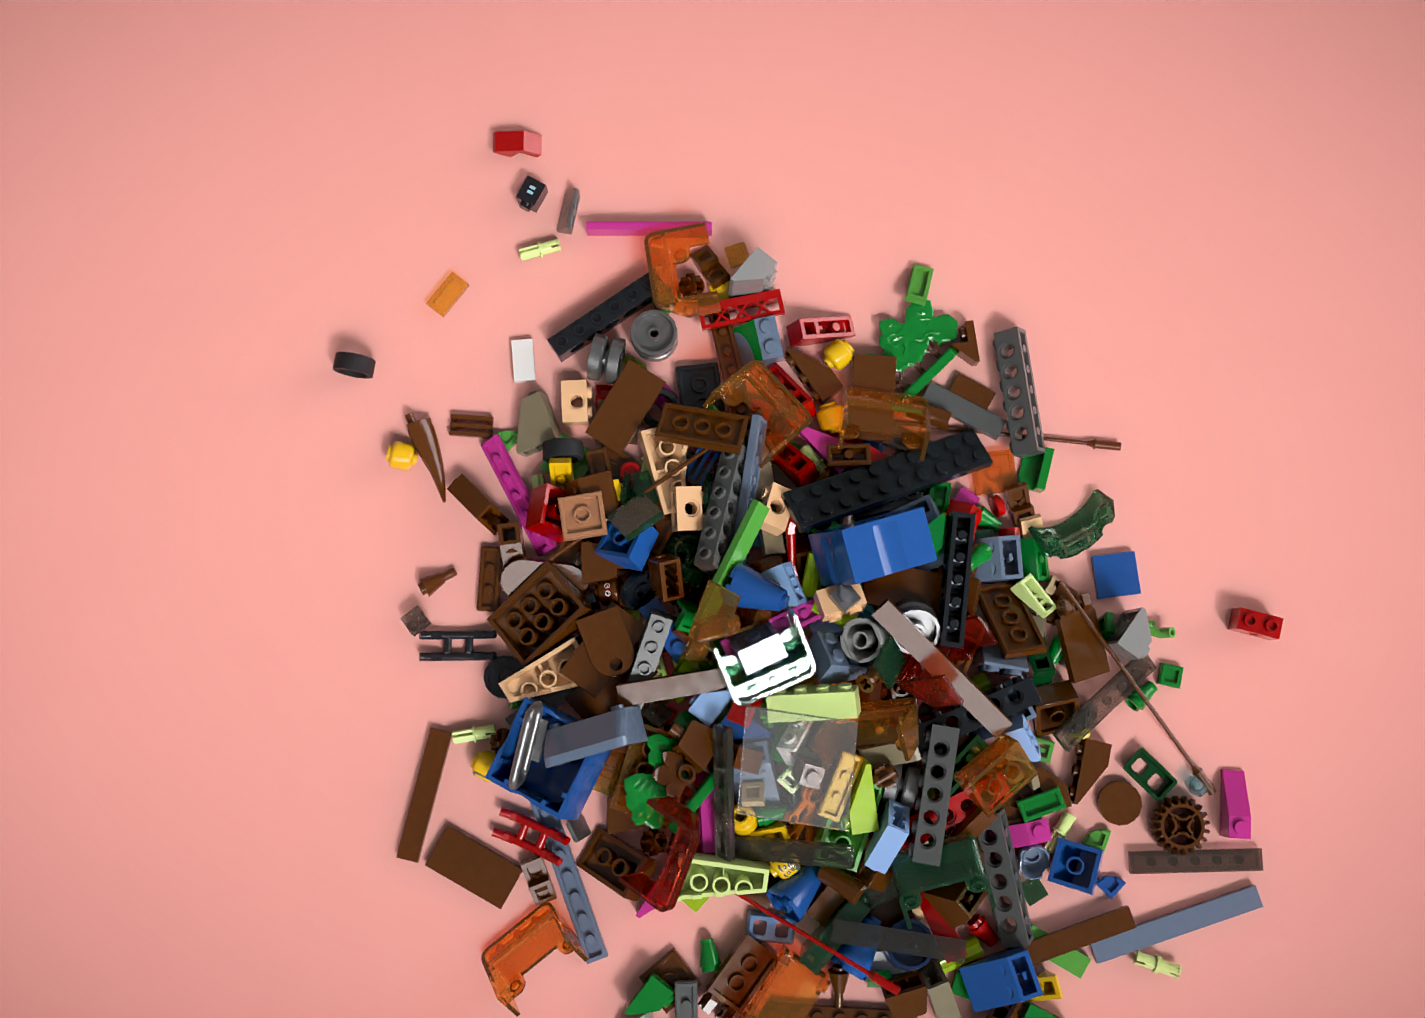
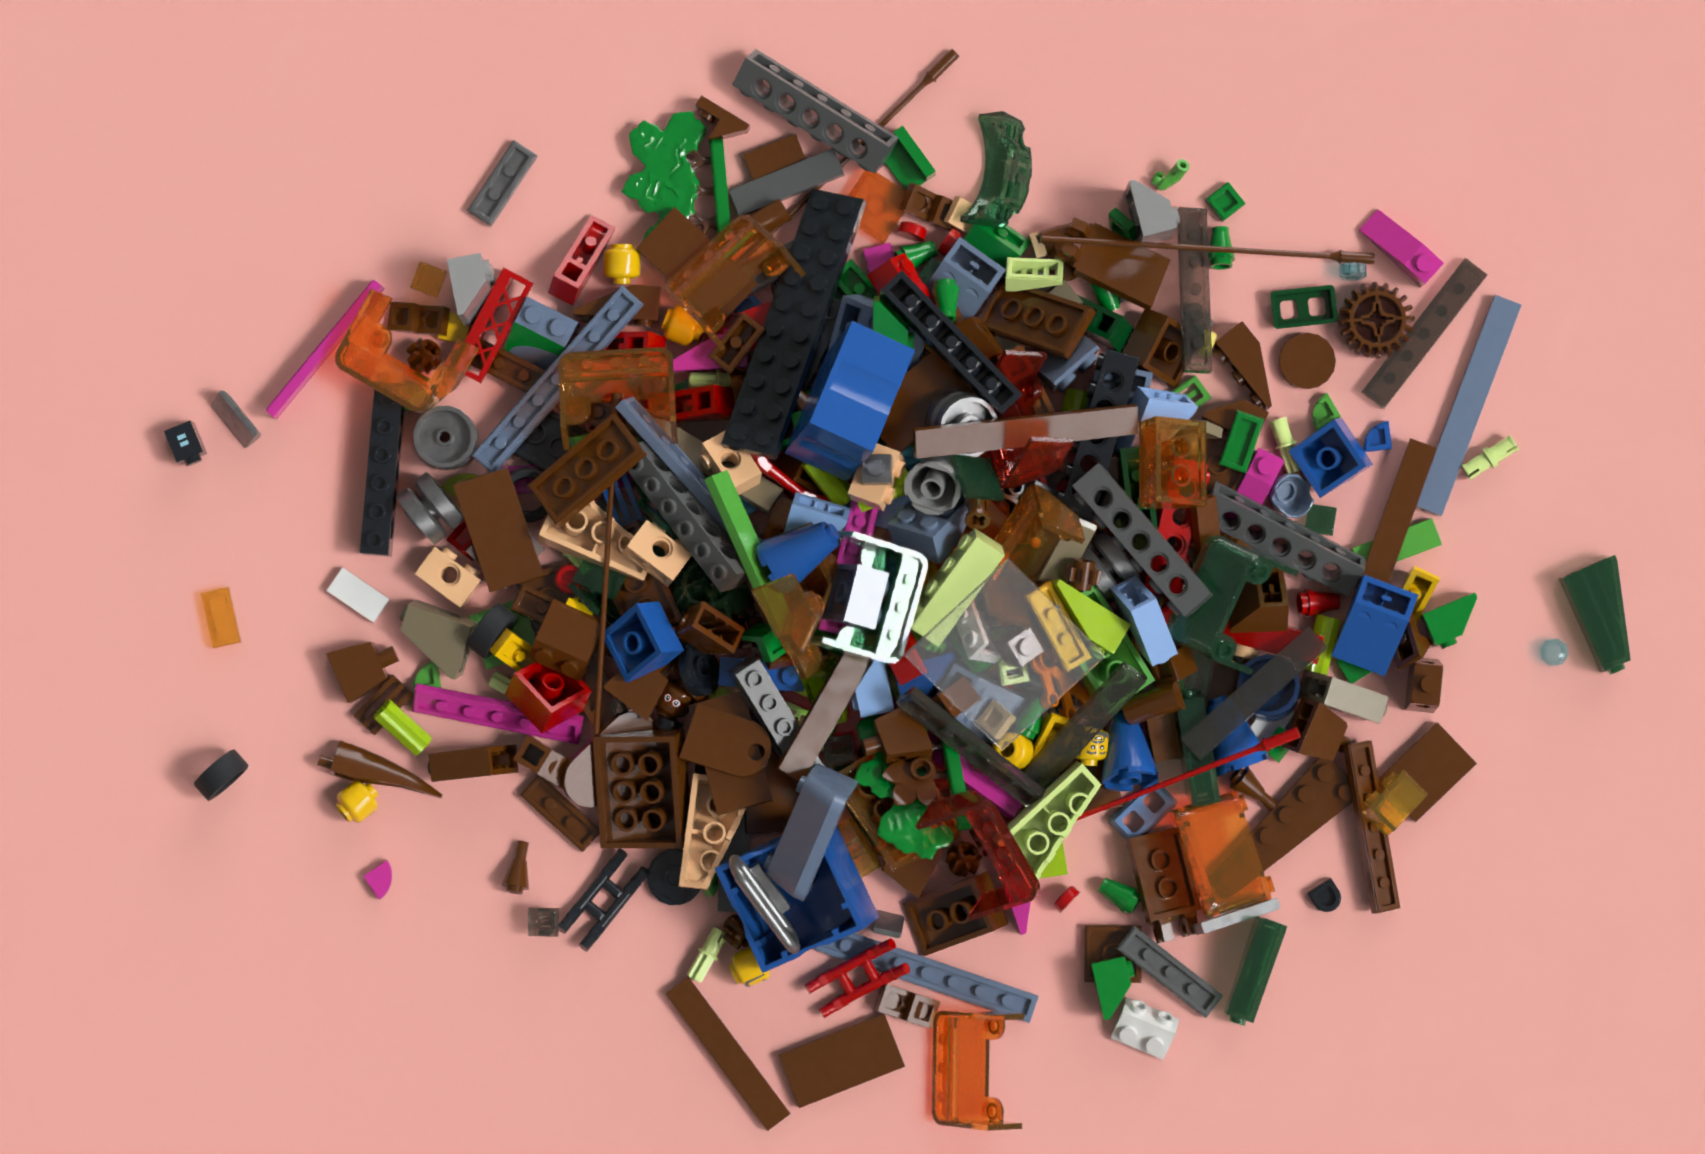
camera: 45 degrees left, 5 degrees up
(367, 506) = (380, 879): none -> dark pink tile
(465, 446) = (402, 727): none -> lime axle
(481, 395) = (361, 668): none -> reddish brown torso
(514, 142) = (116, 412): red slope -> none
(539, 249) = (252, 482): yellowish green axle -> none
(582, 516) = (579, 664): nougat tile -> none
(635, 516) = (624, 611): tile -> none
(679, 924) = (1066, 898): none -> red tile
(720, 370) = (545, 392): none -> sand blue tile
(826, 252) = (502, 183): none -> flat silver tile
(919, 284) = (617, 117): bright green tile -> none
(1115, 575) = (1081, 170): blue tile -> none
(1255, 623) = (1244, 72): red brick -> none

